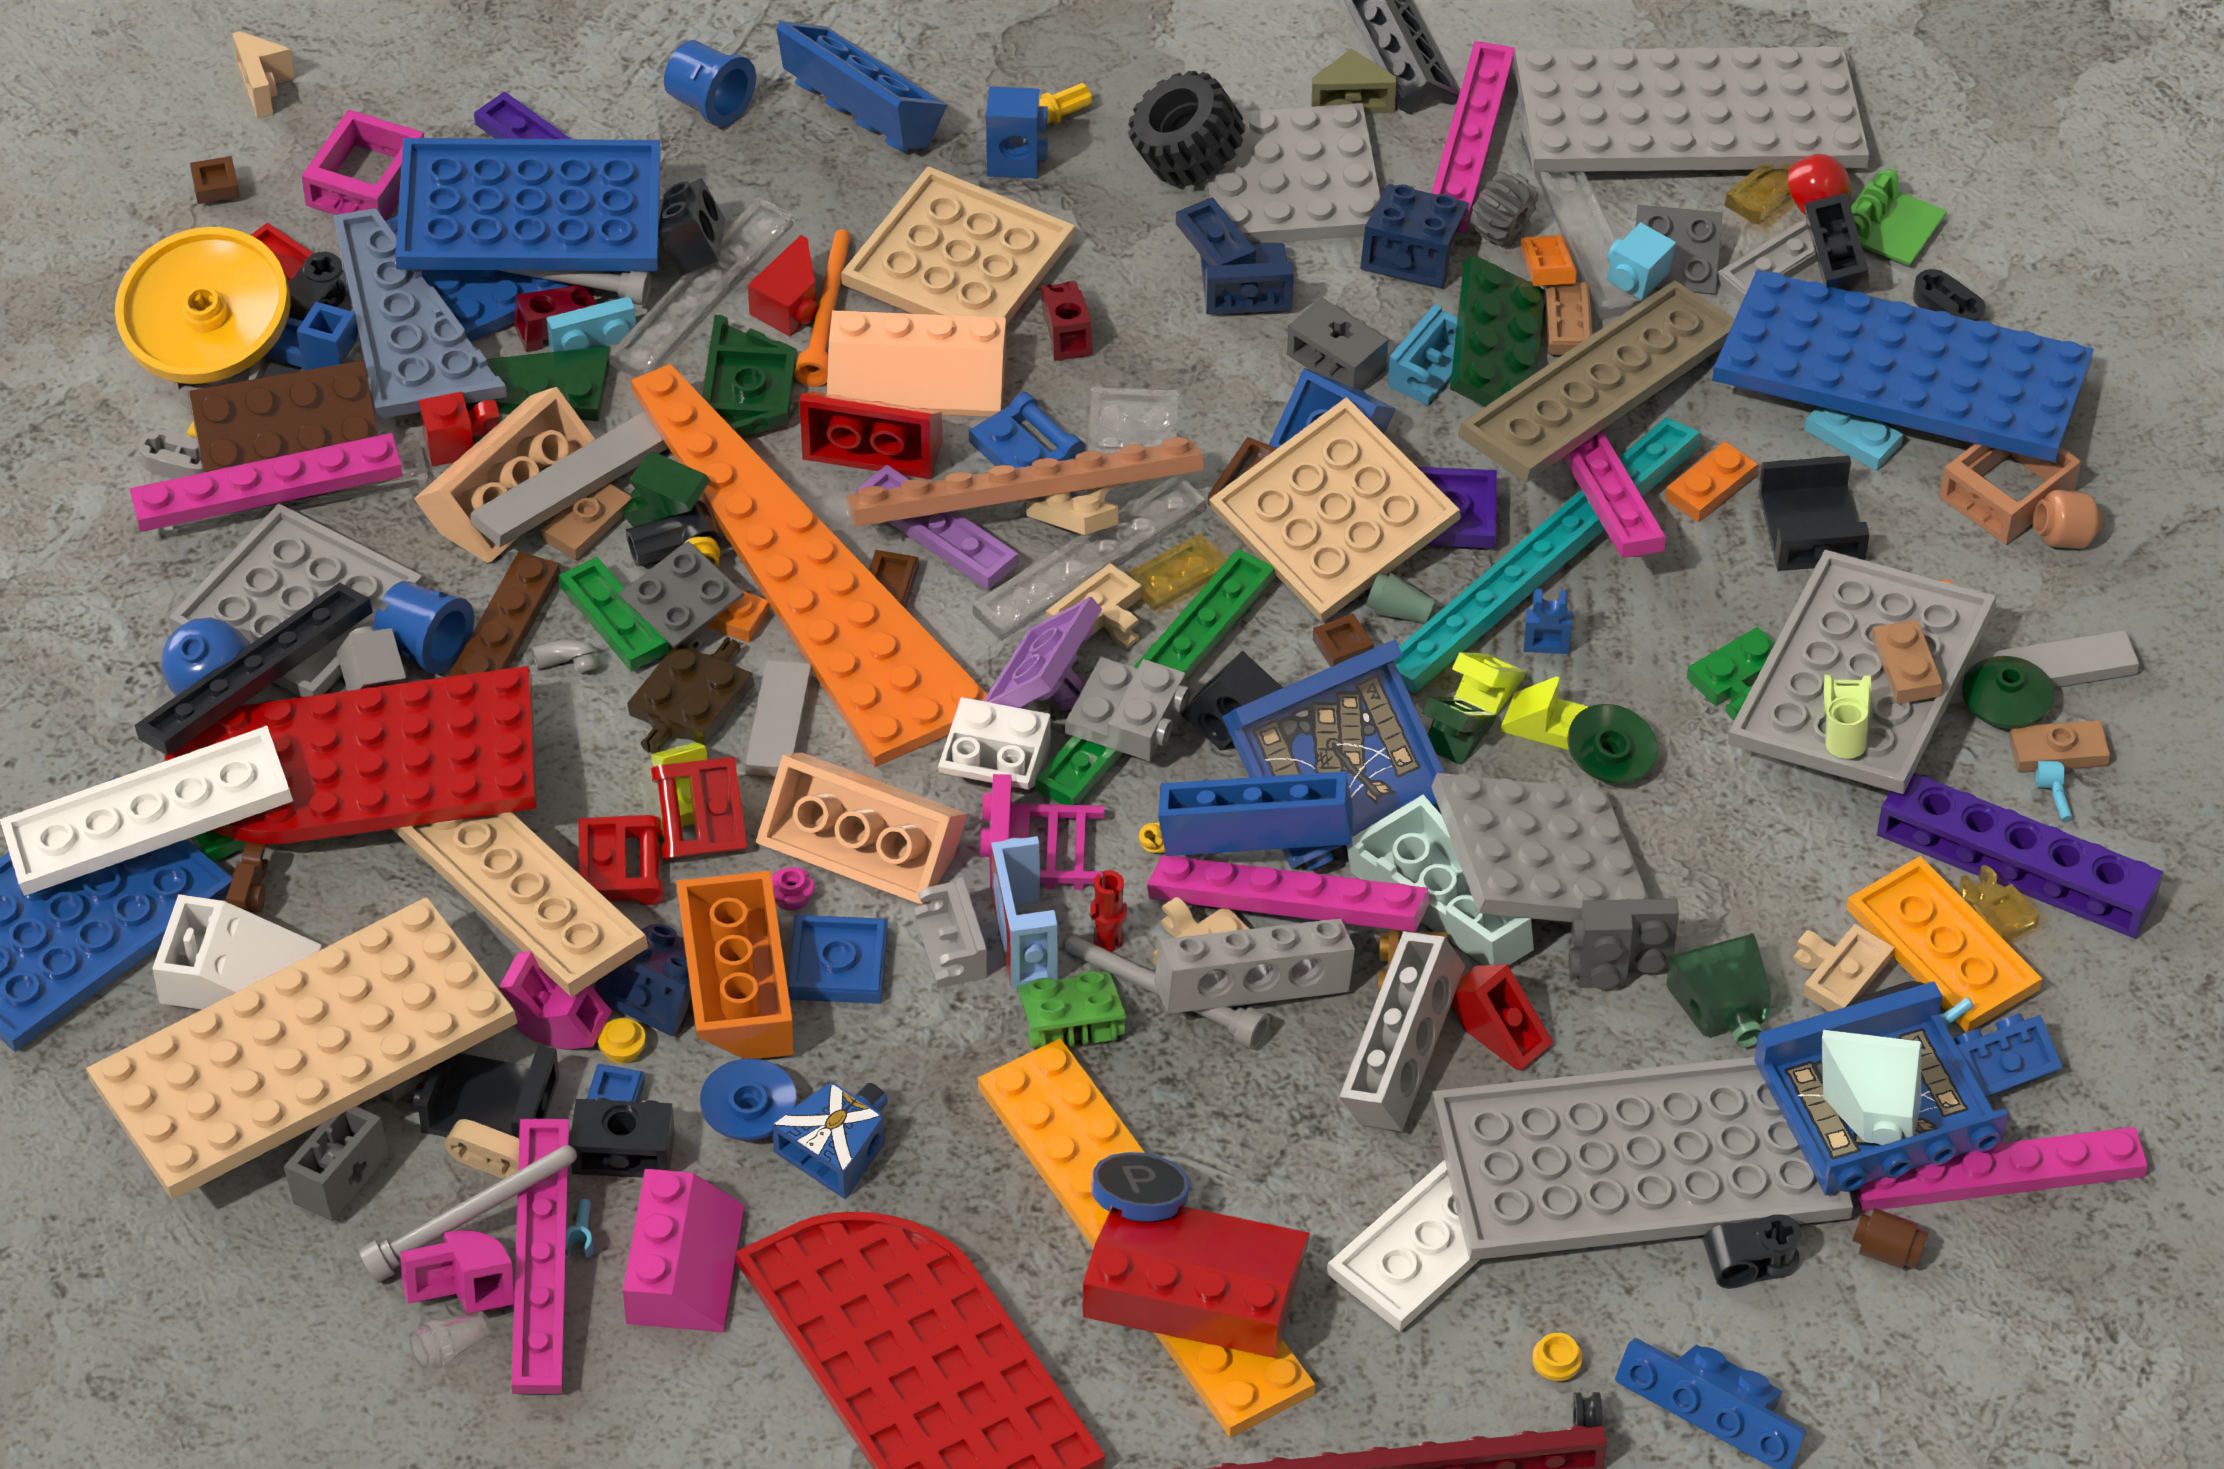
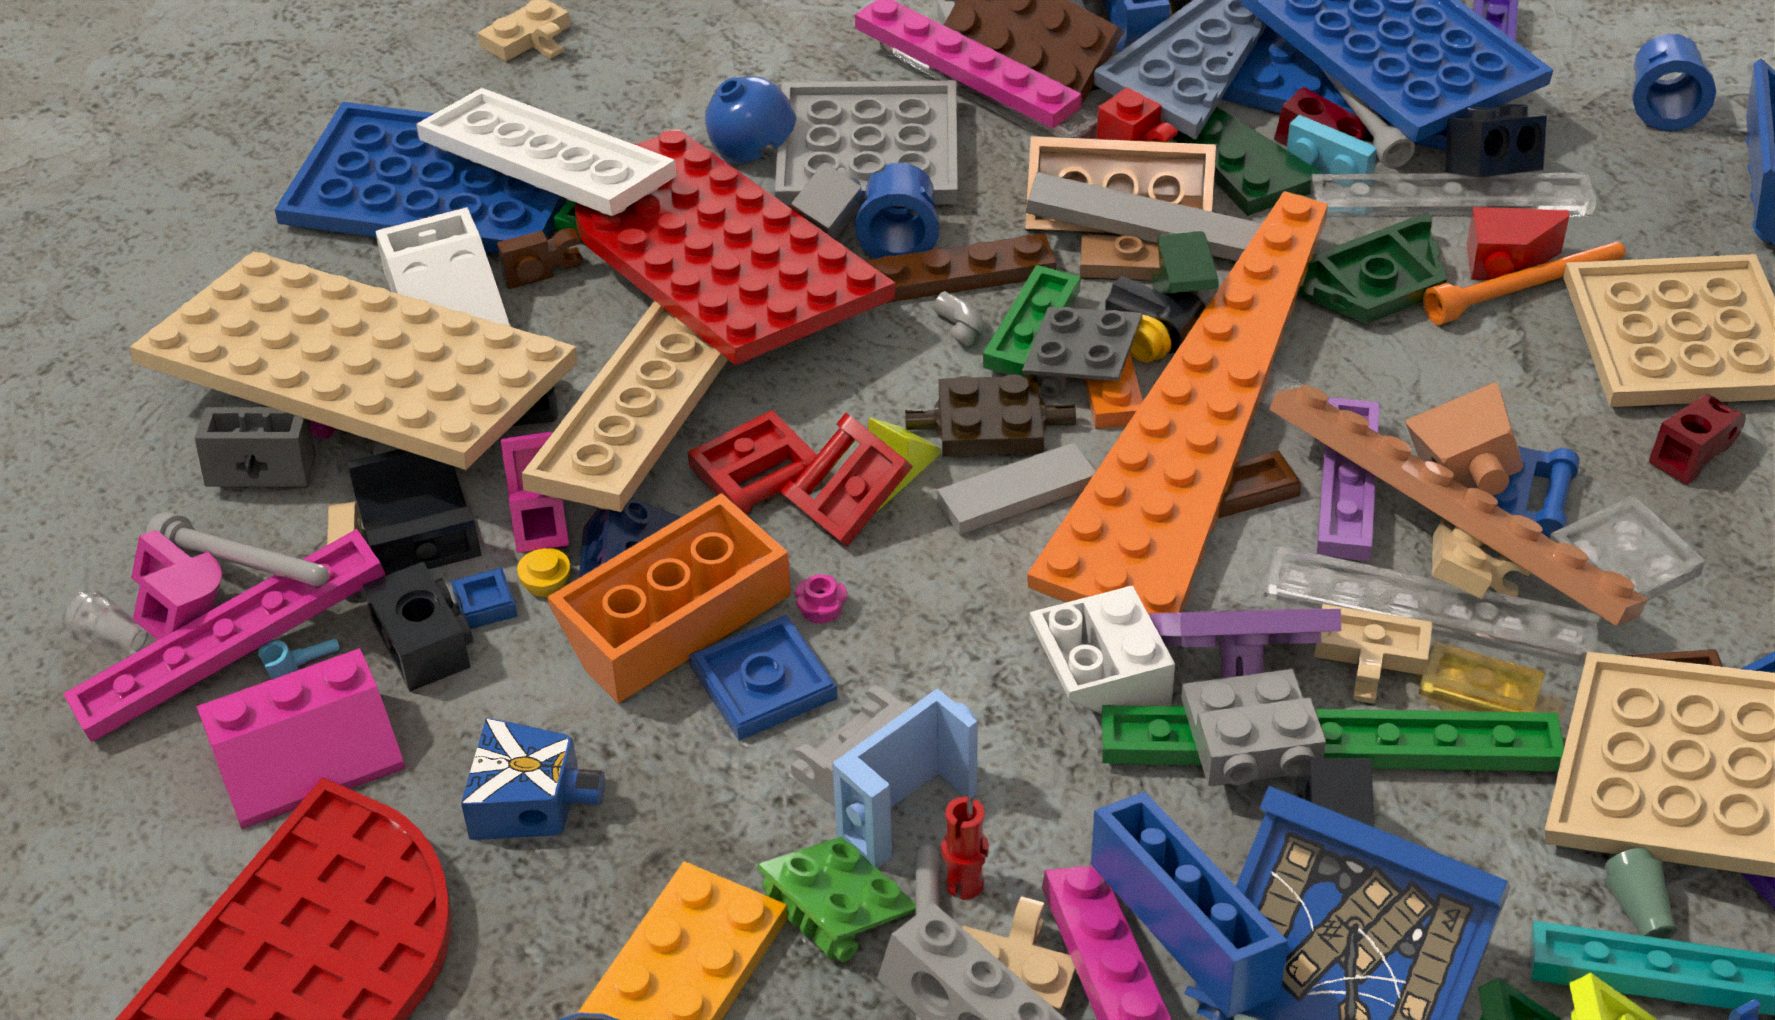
camera: 60 degrees right, 5 degrees down
(253, 669) = (756, 138): black plate -> none
(744, 1085) = (526, 689): blue dish -> none
(859, 826) = (932, 603): light nougat slope -> none
(869, 434) = (1394, 359): red slope -> none
(919, 360) = (1547, 374): light nougat slope -> none
(979, 436) = (1470, 439): none -> nougat torso
(1013, 821) = (1024, 717): dark pink plate -> none
(1341, 639) = (1535, 873): reddish brown plate -> none

